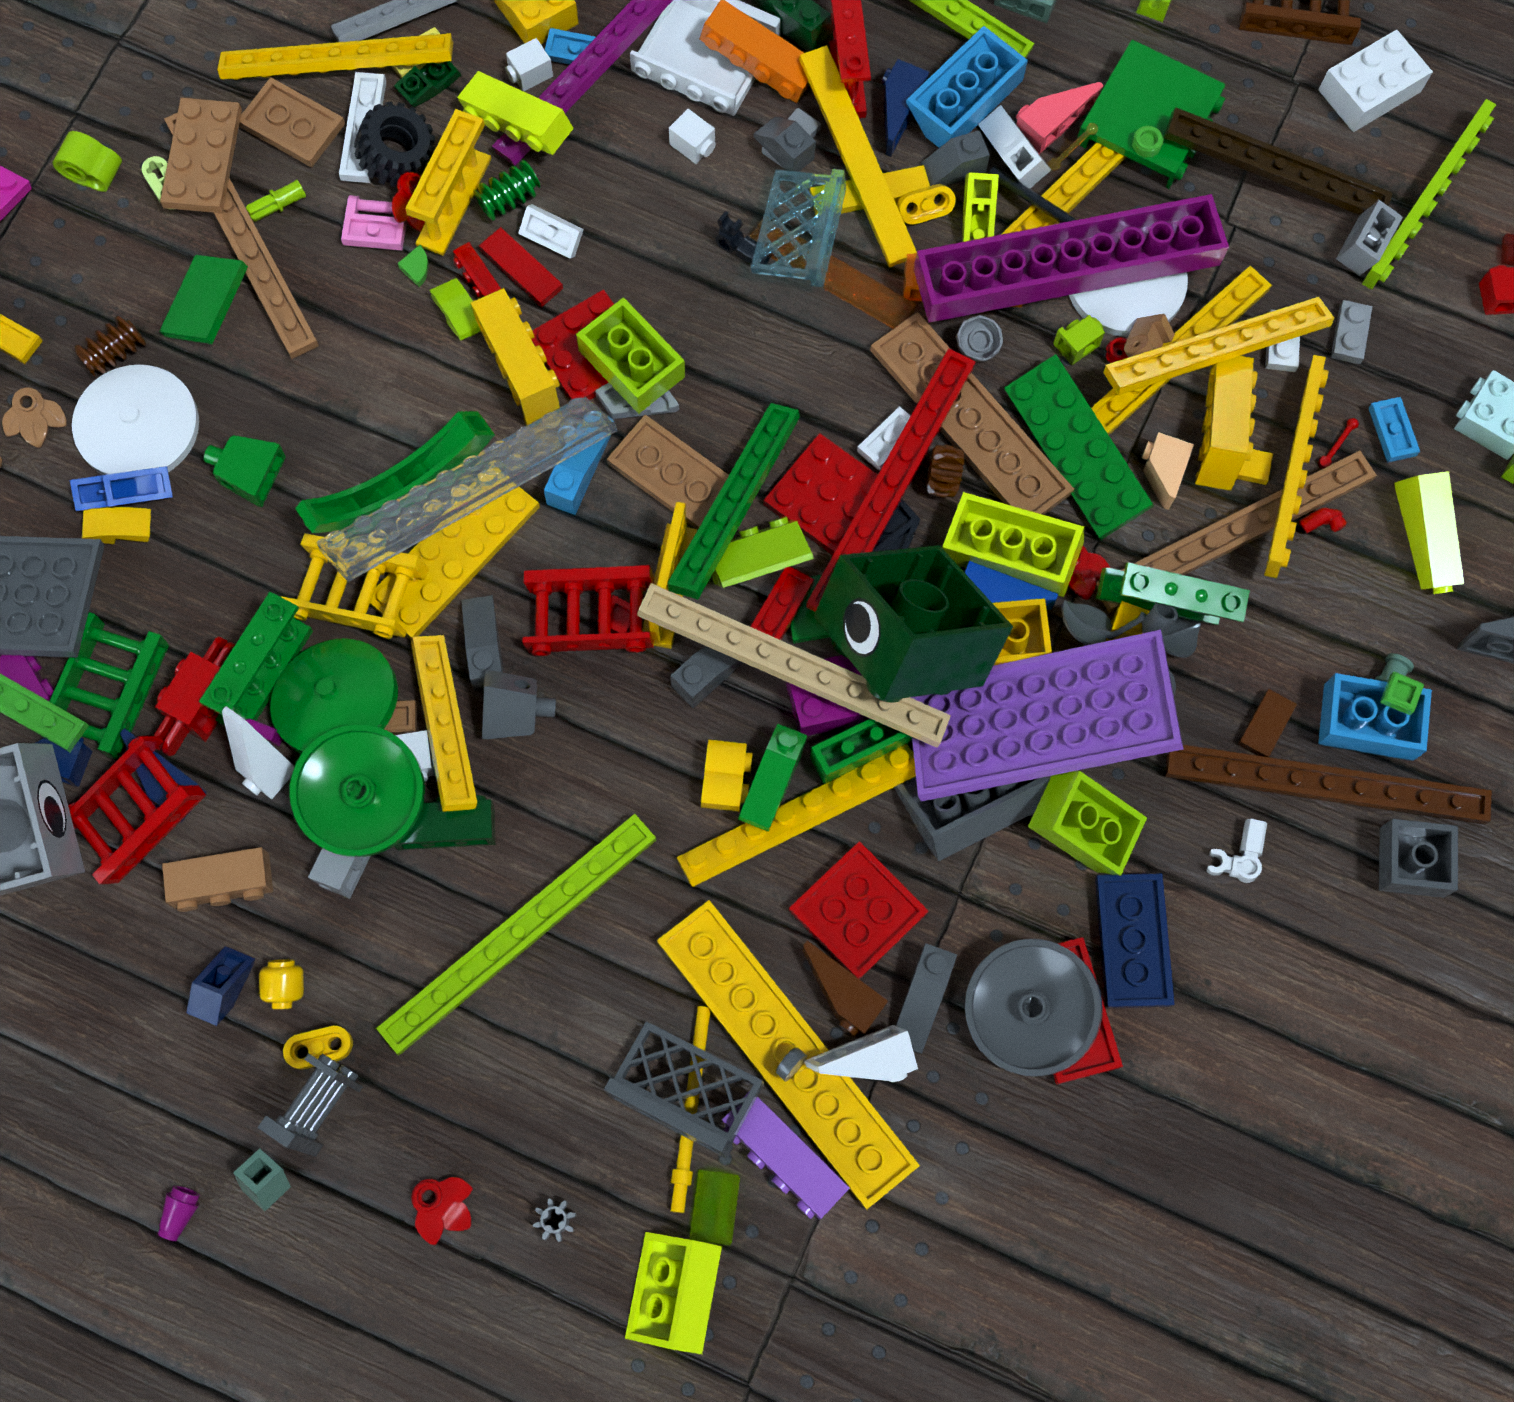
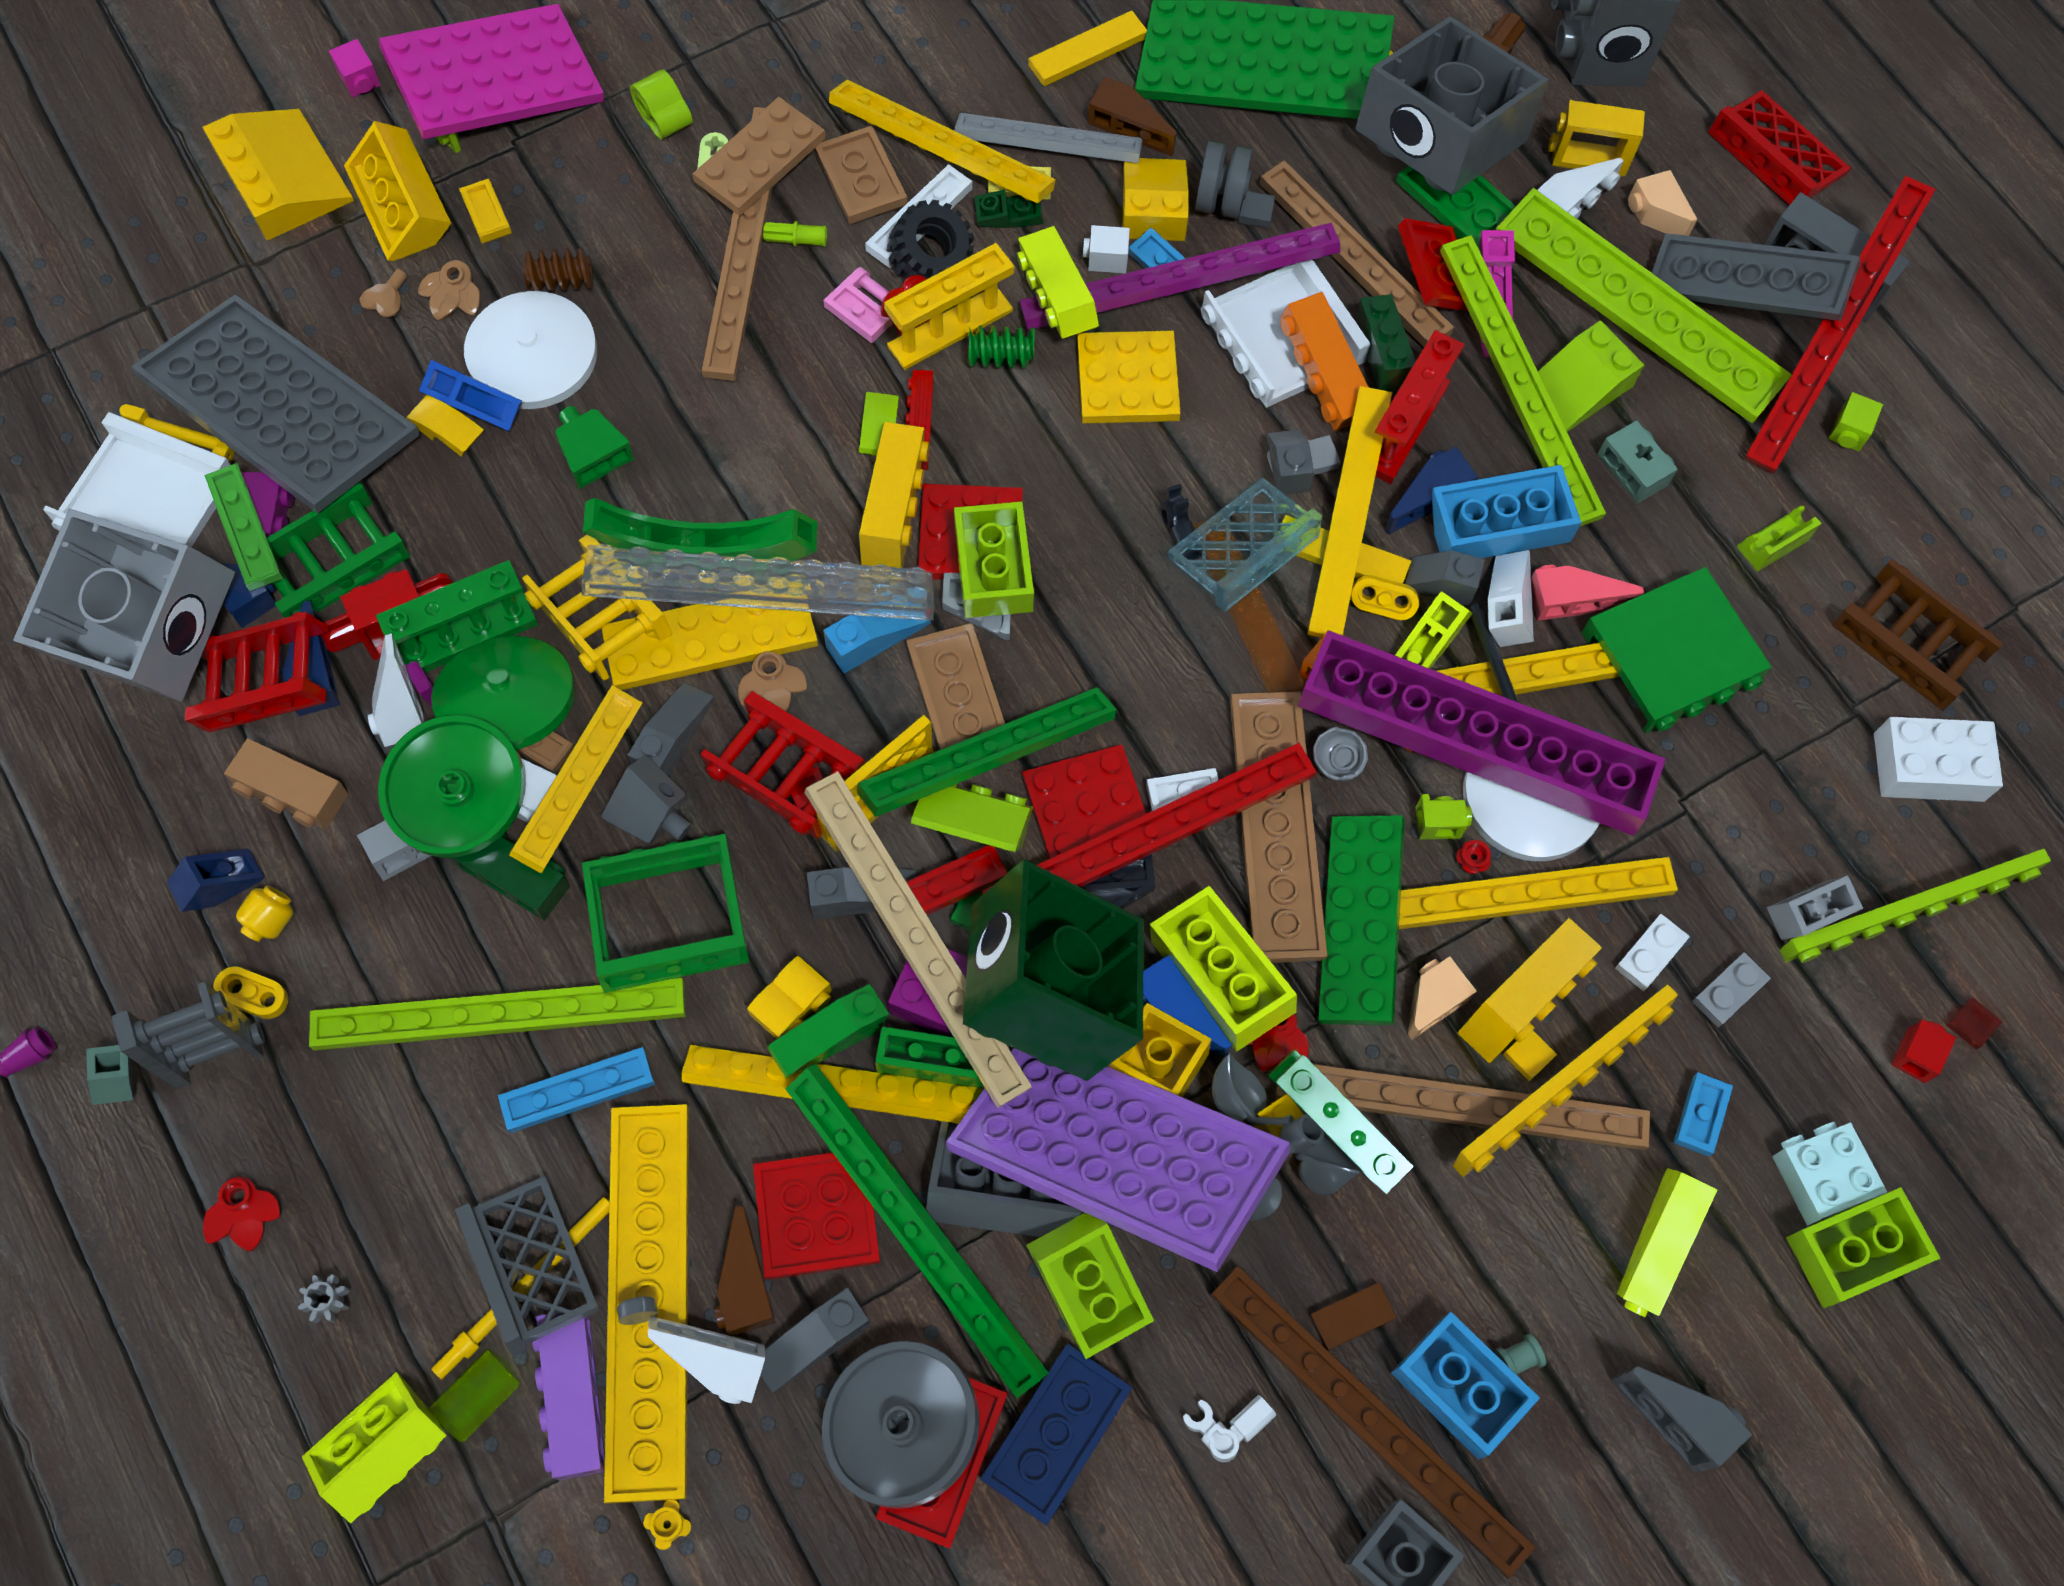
camera: 35 degrees right, 5 degrees down
(203, 299) = (667, 279): green tile -> none
(415, 265) = (873, 363): bright green tile -> none
(521, 267) = (965, 422): red tile -> none
(533, 557) = (773, 686): none -> medium nougat plate
(550, 231) = (1014, 407): white plate -> none
(616, 155) = (1128, 377): none -> yellow plate
(619, 946) = (576, 1090): none -> dark azure plate
(623, 805) = (673, 961): none -> green window
(692, 136) = (1209, 401): white brick -> none
(928, 1188) = (655, 1523): none -> yellow plate
(938, 871) = (917, 1231): none -> green plate
(944, 471) = (1211, 856): reddish brown gear -> none
(1055, 164) = (1545, 639): clear yellow hinge -> none
(1147, 141) = (1647, 672): bright green tile -> none
(1148, 334) = (1505, 862): medium nougat leg -> none
(1218, 345) = (1572, 911): yellow plate -> none
(1273, 162) = (1767, 774): dark brown plate -> none
(1323, 516) = (1564, 1151): red arm -> none
(1326, 461) = (1663, 1080): red hinge -> none
(1402, 693) = (1504, 1379): bright green tile -> none

